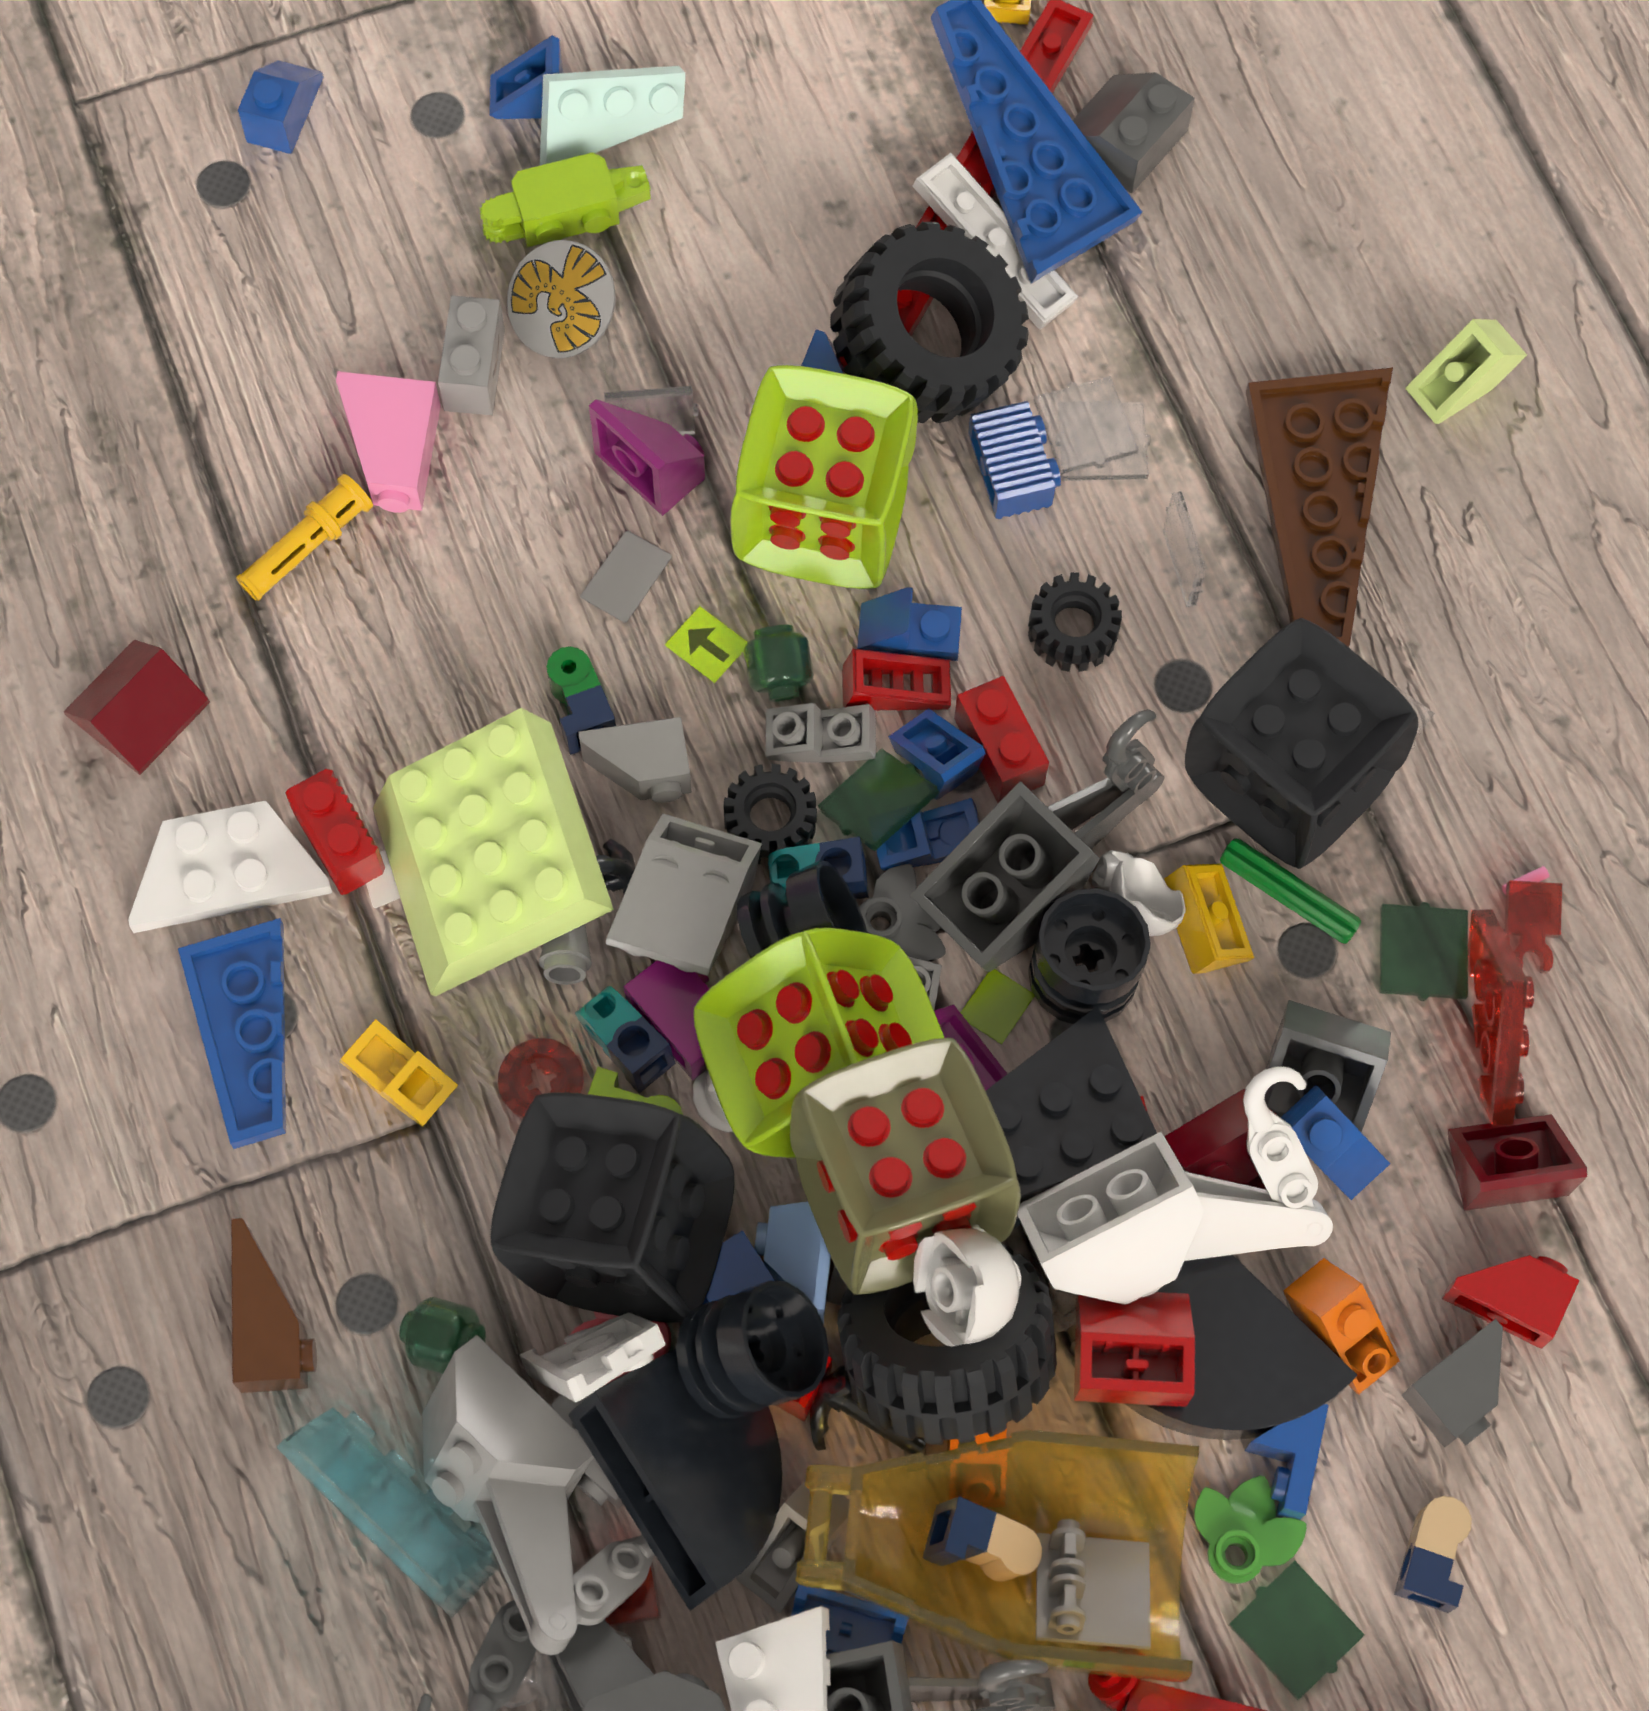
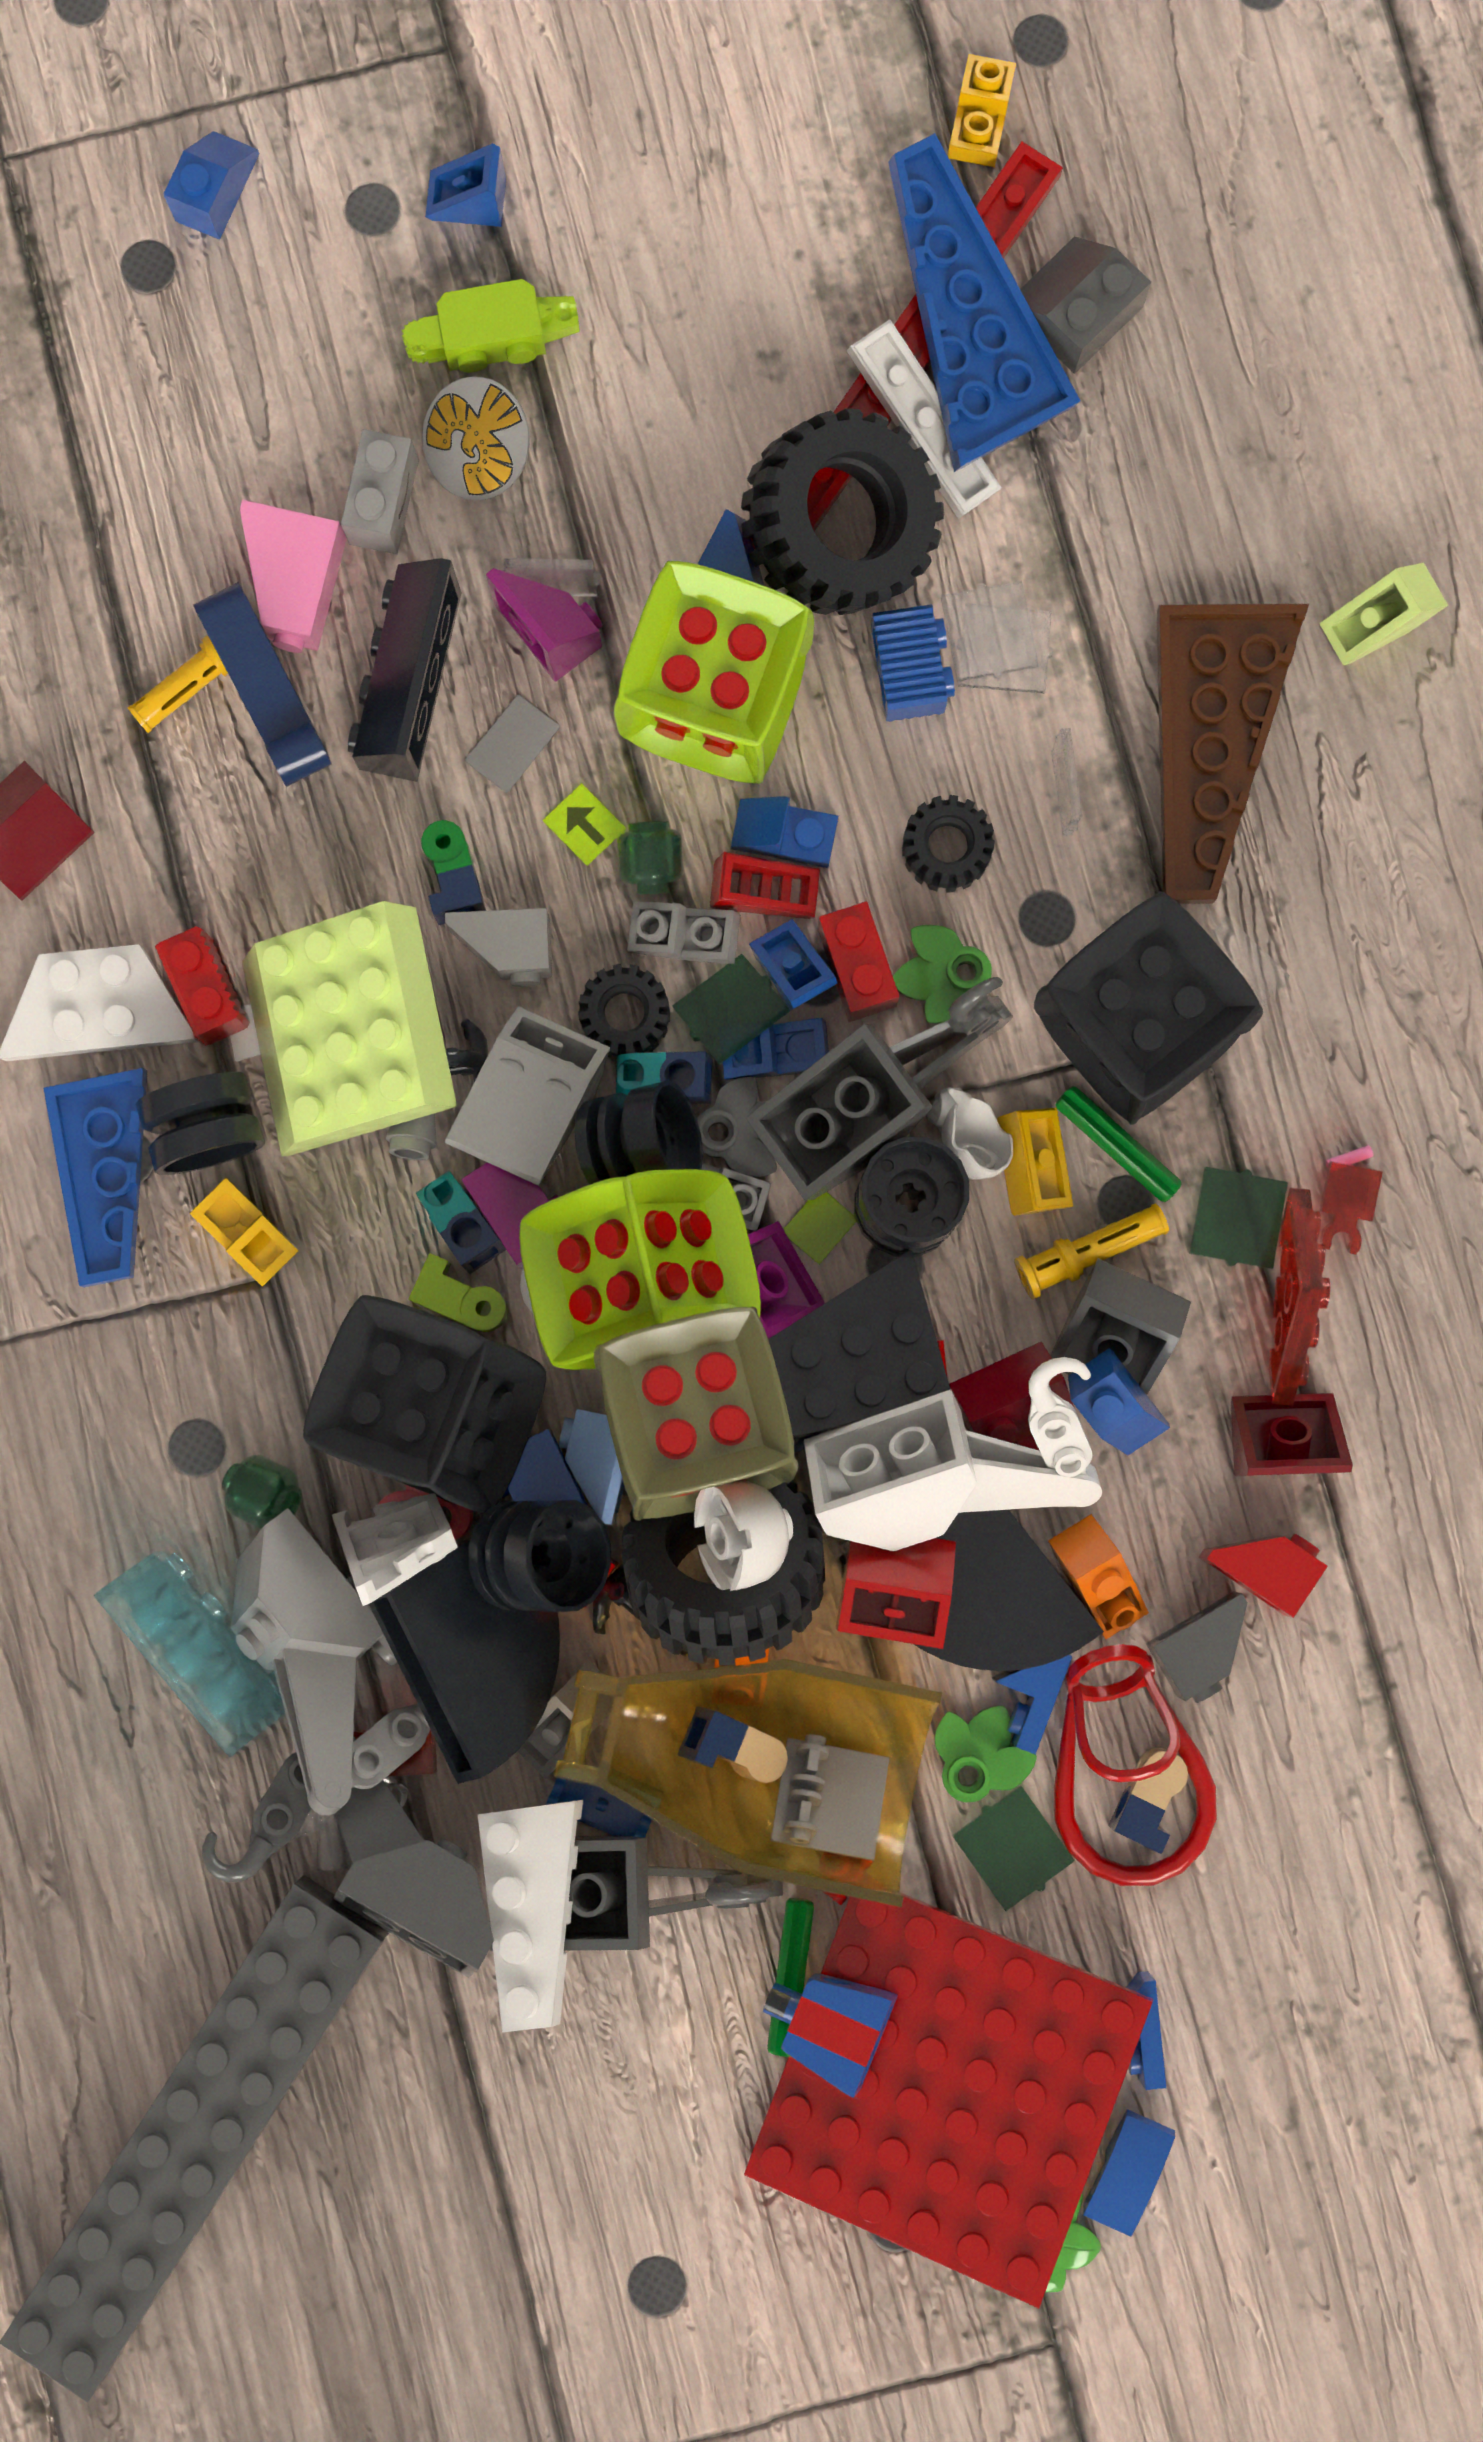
camera: 10 degrees right, 15 degrees up
(267, 1335) = (100, 1466): reddish brown slope -> none
(346, 960) = (200, 1123): none -> black wheel
(399, 579) = (262, 684): none -> dark blue beam
(514, 512) = (406, 669): none -> black slope
(550, 1058) = (356, 1242): clear red gear -> none
(606, 108) = (542, 226): light aqua wing -> none
(1078, 745) = (934, 971): none -> bright green plate
(1259, 1006) = (1069, 1258): none -> yellow pin
(1446, 1471) = (1179, 1743): none -> red animal

